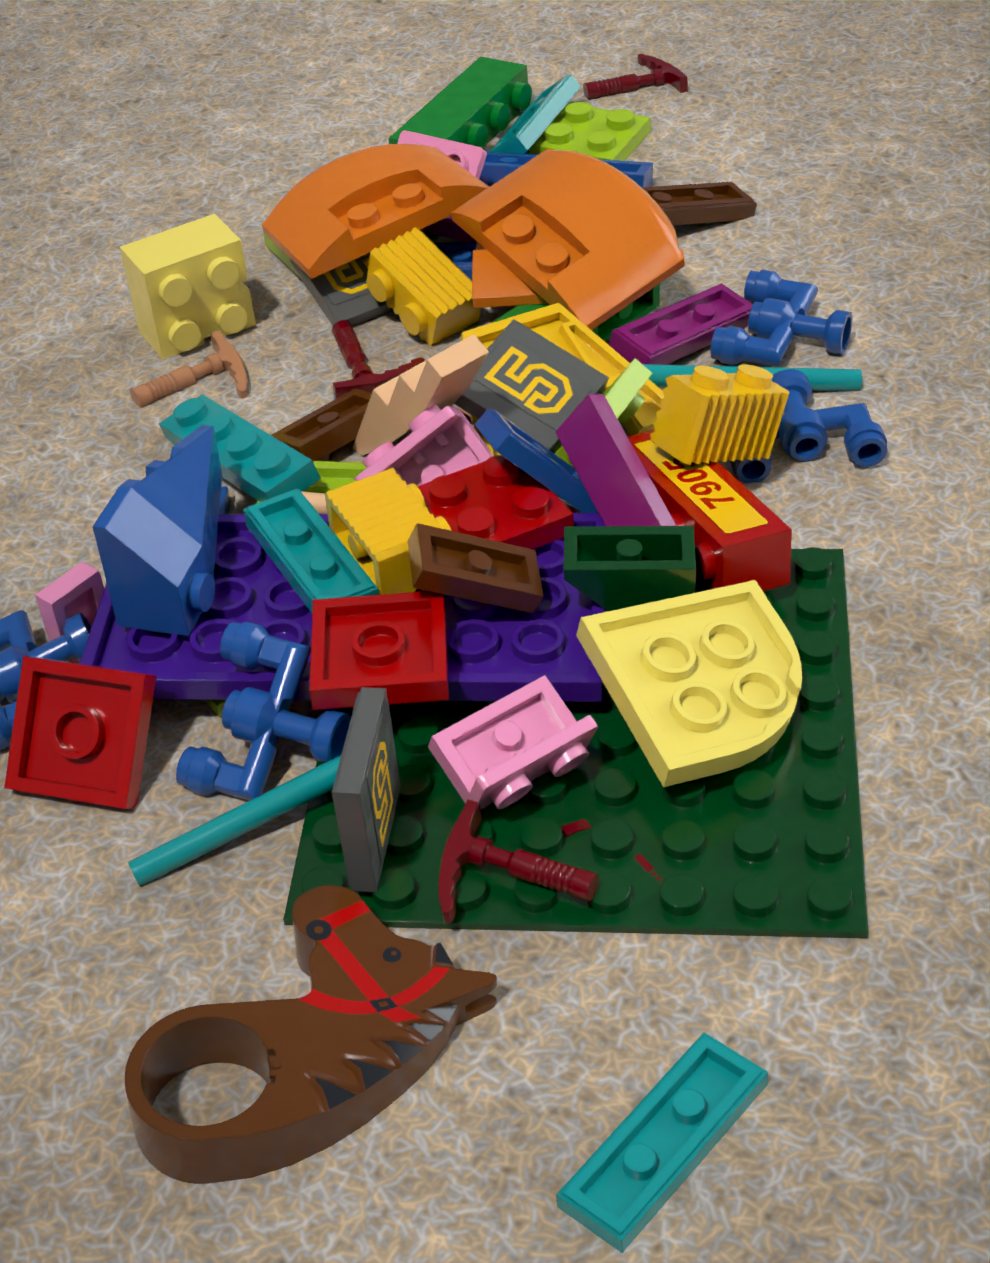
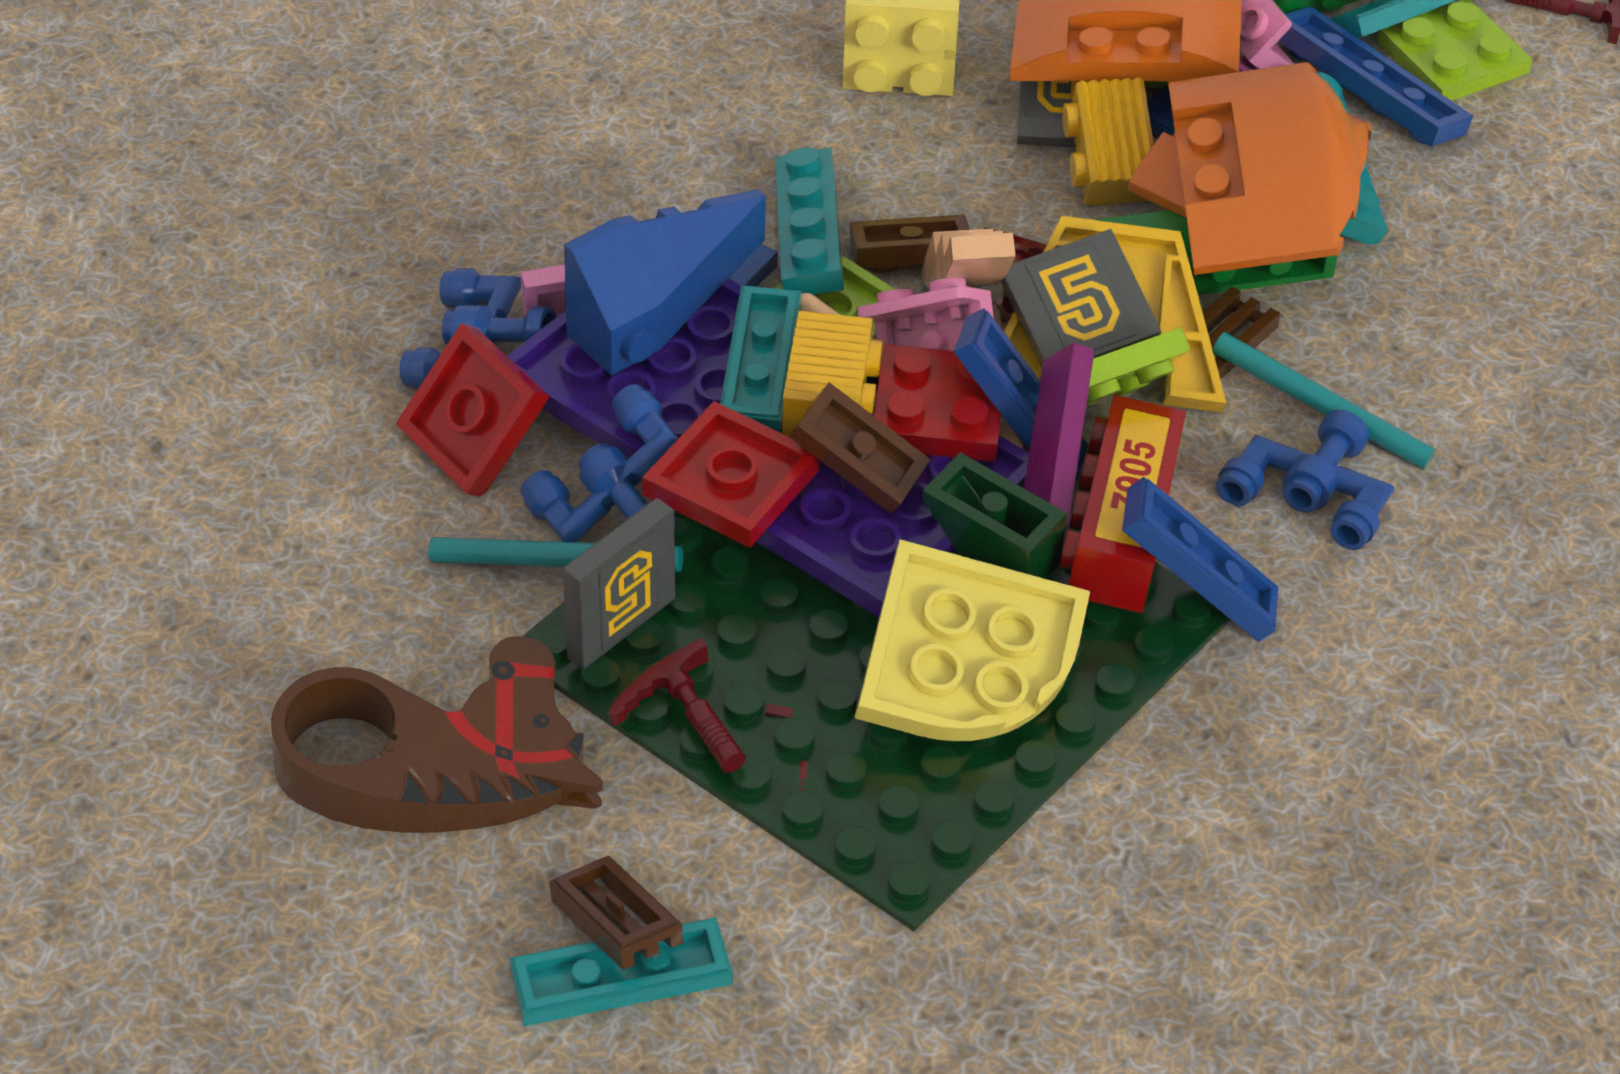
camera: 30 degrees right, 5 degrees up
(183, 377) = (837, 118): nougat piece -> none
(355, 359) = (991, 209): dark red piece -> none
(512, 743) = (773, 614): bright pink bracket -> none
(611, 1094) = (603, 914): none -> reddish brown tile
(681, 326) = (1316, 315): magenta tile -> none
(703, 202) = (1449, 179): reddish brown tile -> none
(719, 415) = (1203, 425): yellow brick -> none
(775, 317) = (1409, 357): blue piece -> none
(807, 512) = (1200, 558): none -> blue tile

